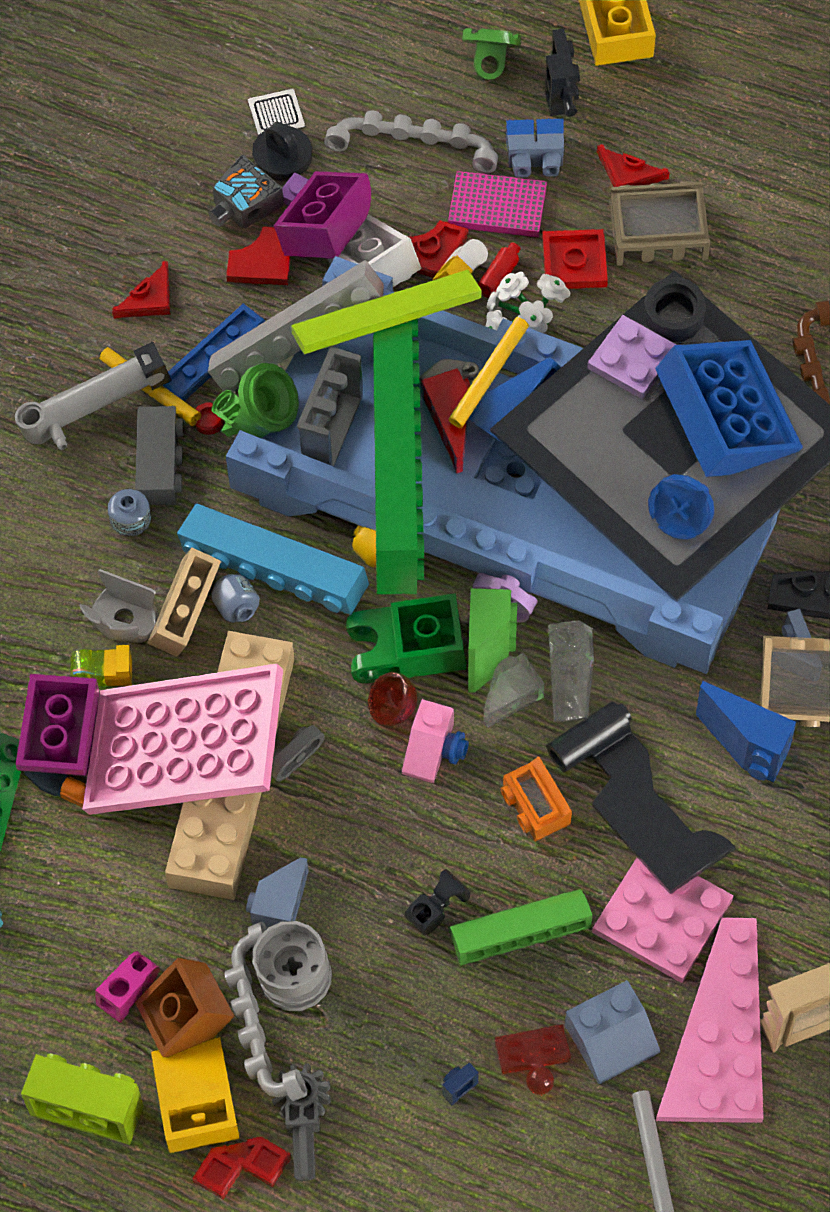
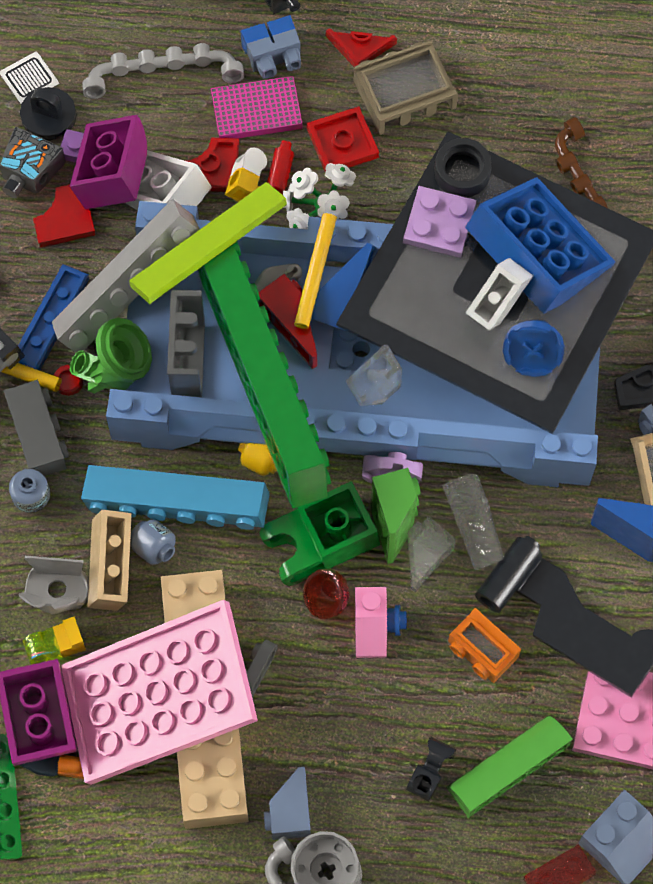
camera: 20 degrees left, 5 degrees up
(513, 497) = (376, 378): none -> clear slope
(664, 442) = (499, 294): none -> white brick

